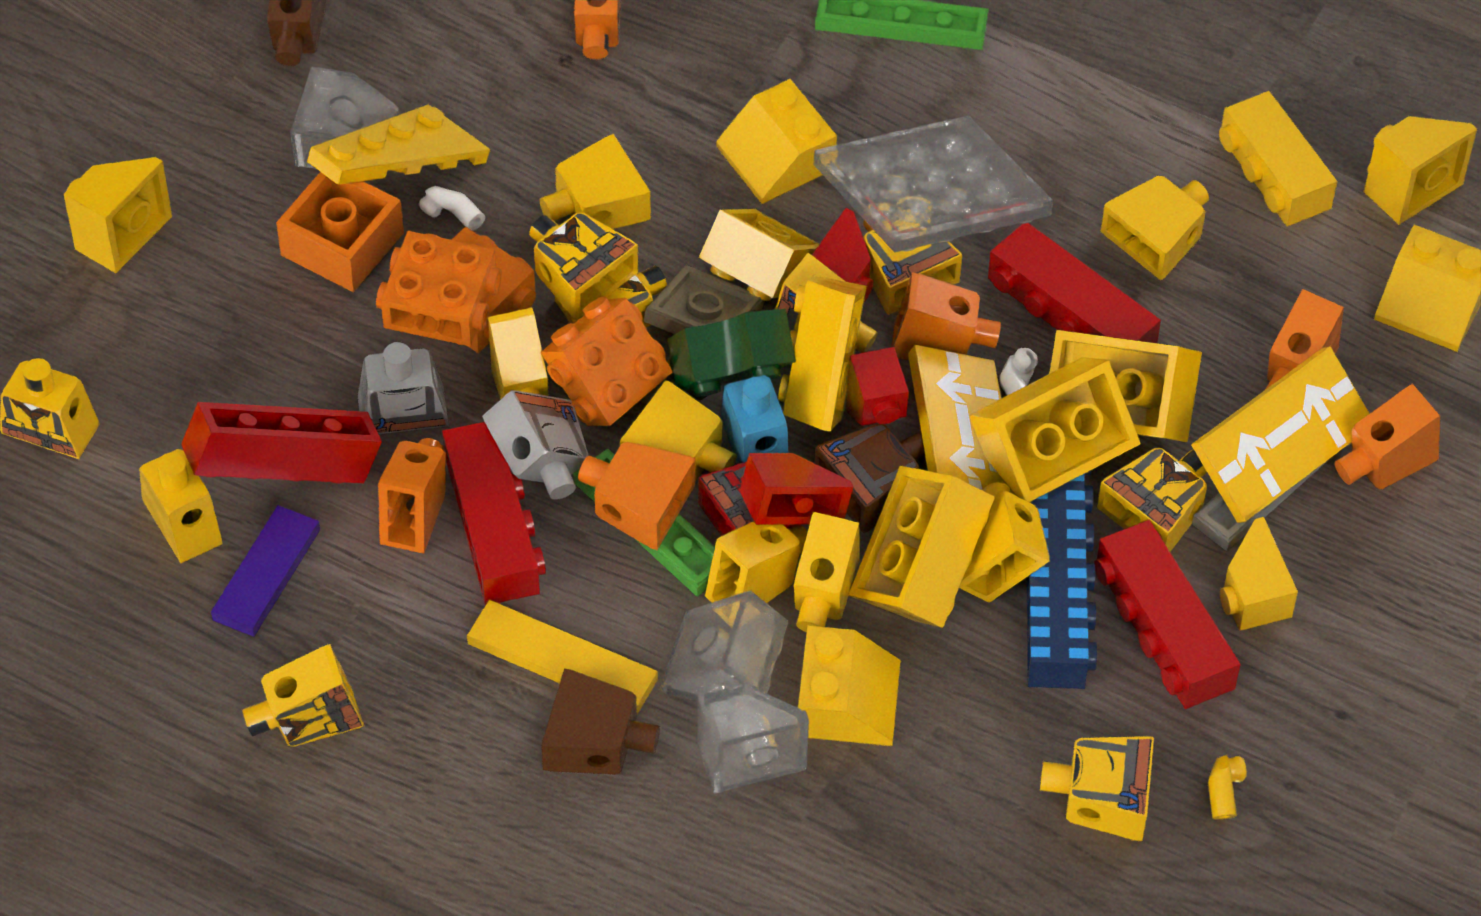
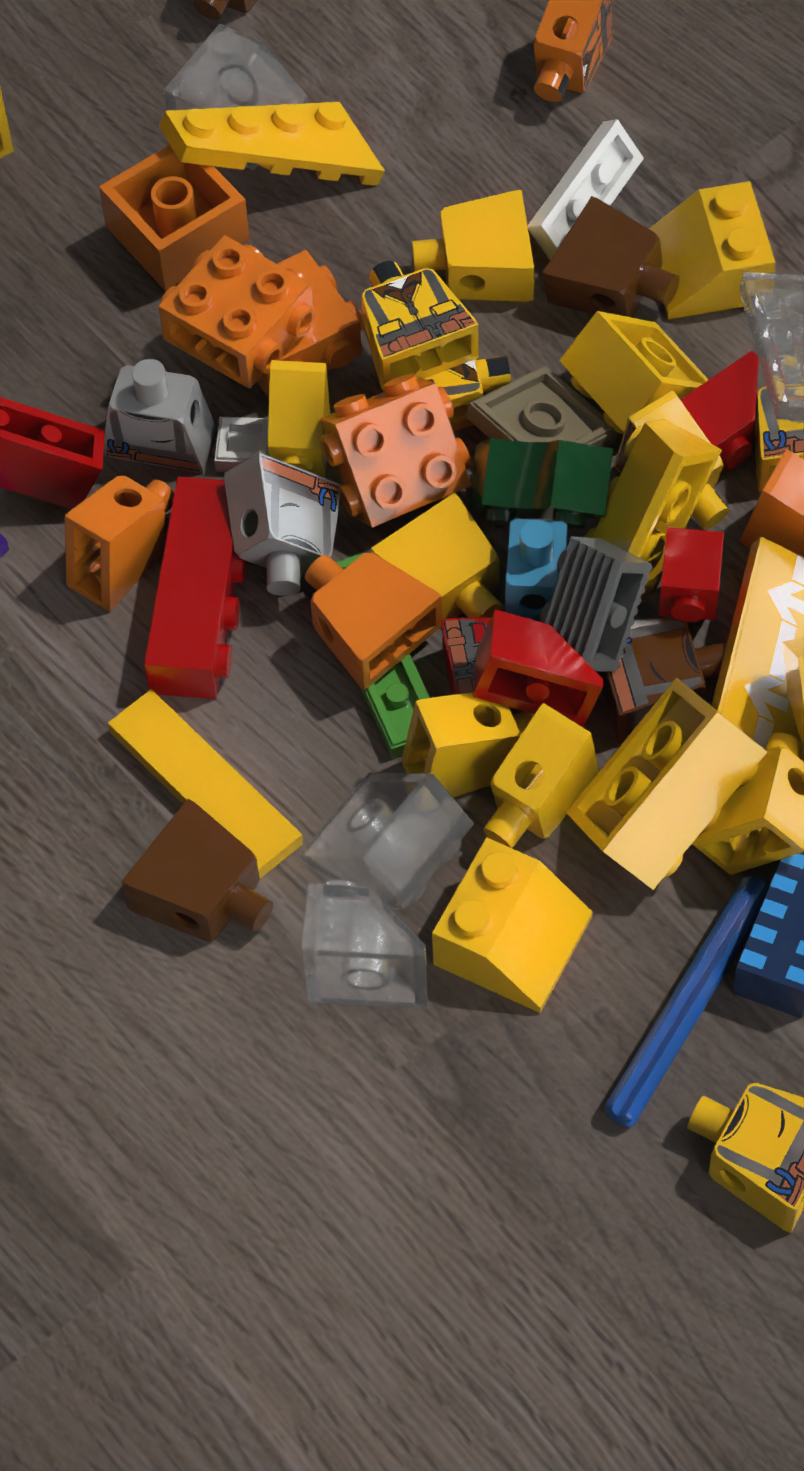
camera: 25 degrees right, 5 degrees up
(453, 201) = (322, 221): white arm -> none
(472, 393) = (239, 440): none -> white tile
(659, 122) = (597, 172): none -> white plate
(704, 173) = (608, 264): none -> reddish brown torso
(819, 422) = (596, 599): none -> dark grey brick
(1000, 701) = (686, 1003): none -> blue axle

